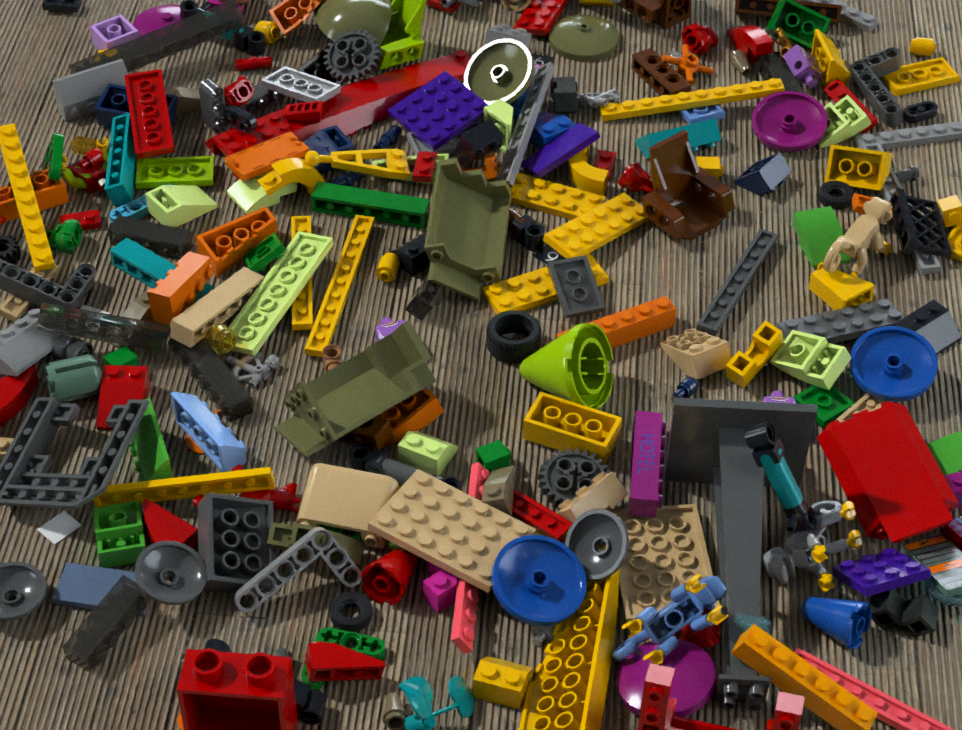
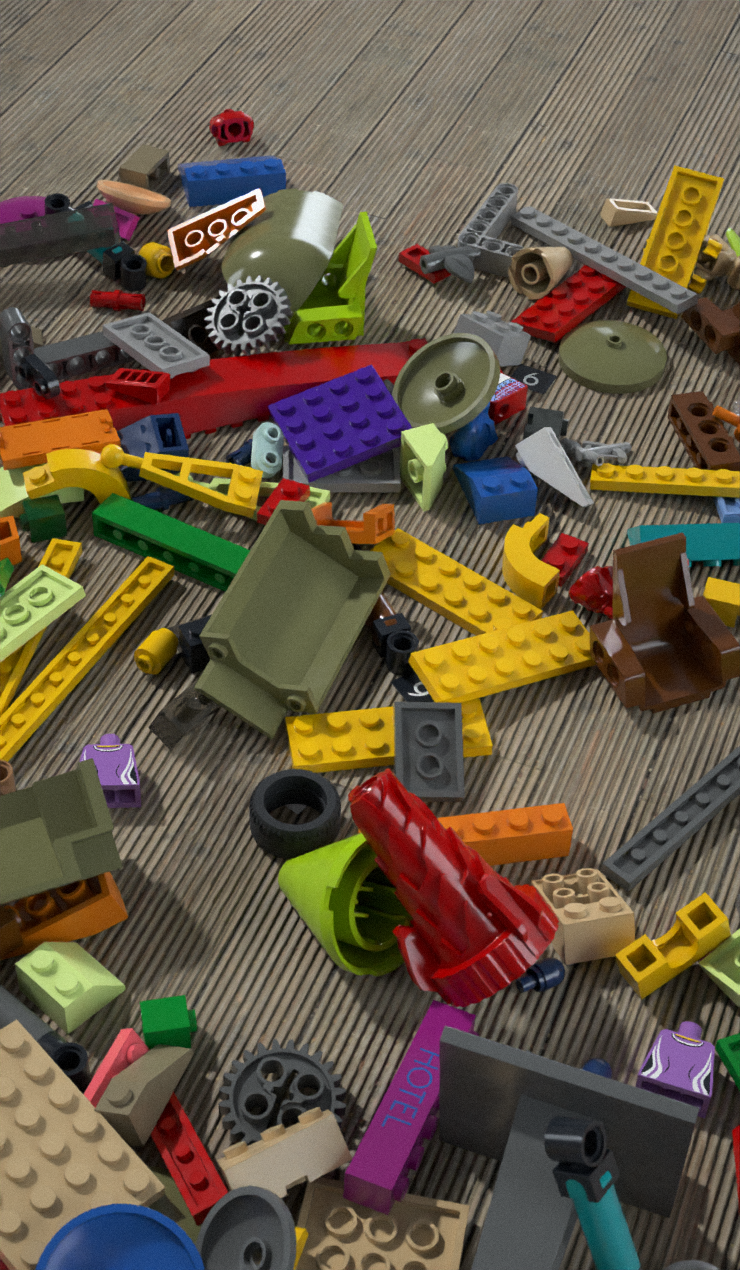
camera: 15 degrees right, 0 degrees up
(238, 92) = (60, 338): red piece -> none
(280, 205) = (43, 518): none -> dark green brick
(398, 135) = (267, 447): none -> light aqua plate
(478, 142) = (368, 483): black slope -> none
(525, 124) = (453, 477): light grey plate -> none
(559, 150) = (497, 521): dark purple tile -> none
(572, 425) = (317, 1003): yellow brick -> none
(575, 108) = (548, 461): none -> white slope
(645, 361) = (468, 920): none -> red cone

